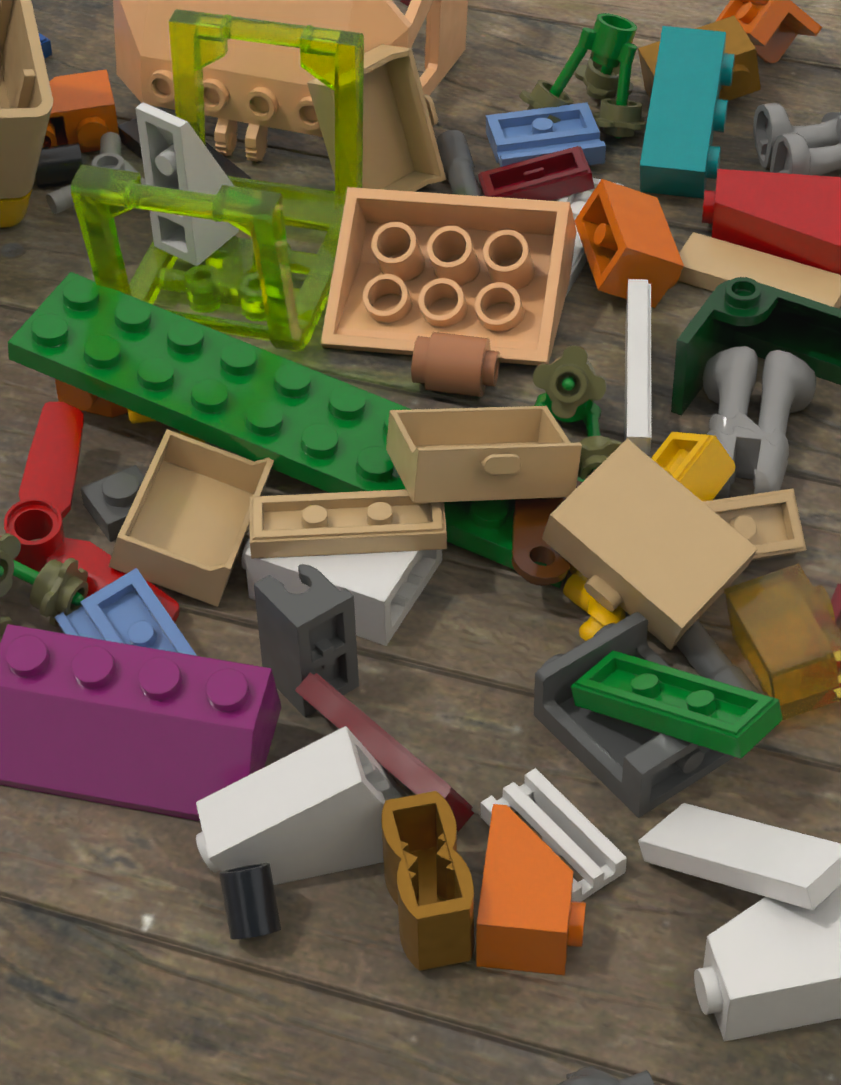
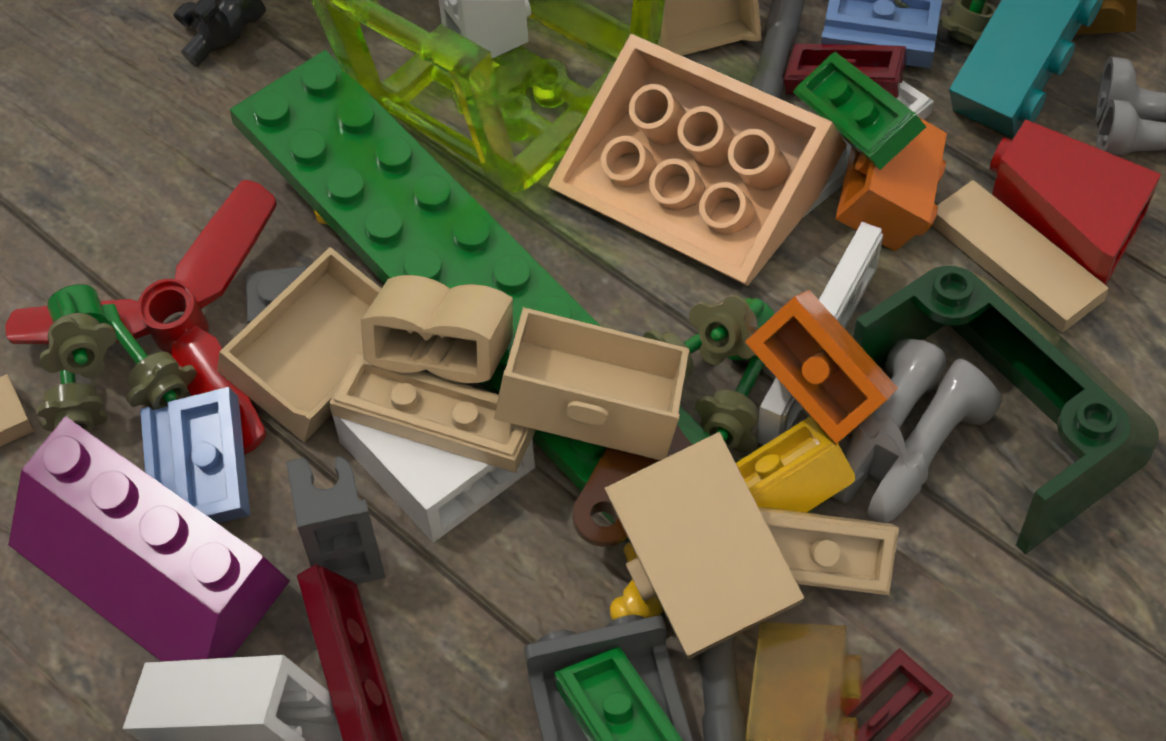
camera: 25 degrees right, 10 degrees up
(335, 447) = (437, 328): none -> tan brick
(455, 363) = (652, 256): nougat brick -> none
(596, 193) = (859, 109): none -> green tile
(672, 378) = (821, 365): none -> orange brick

